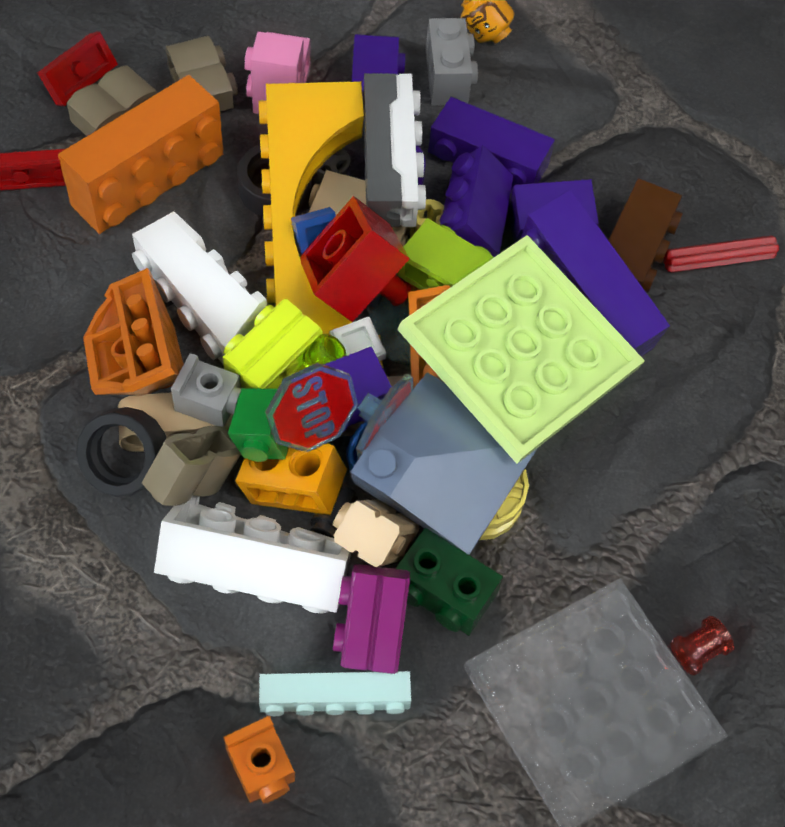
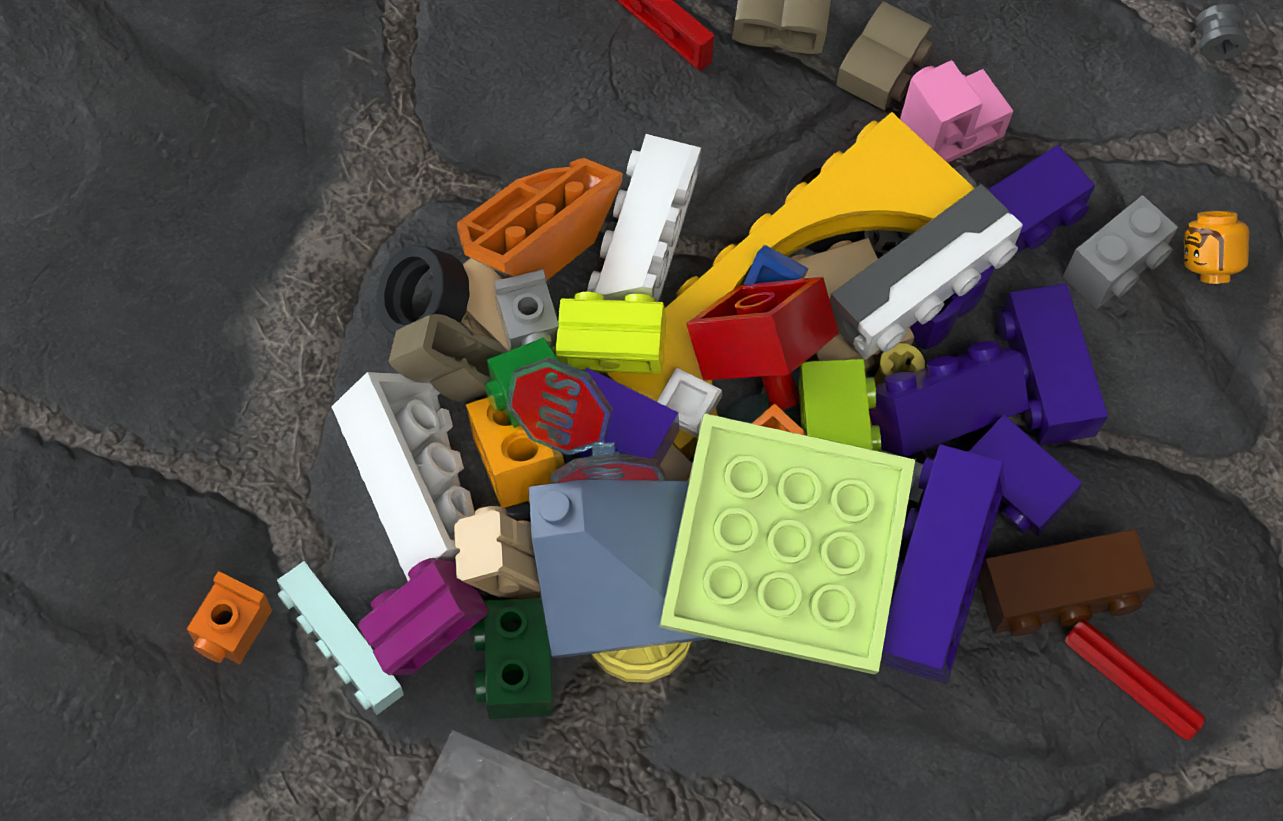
camera: 55 degrees right, 5 degrees up
(142, 153) = (740, 76): orange brick -> none
(323, 350) = (647, 379): clear neon green piece -> none

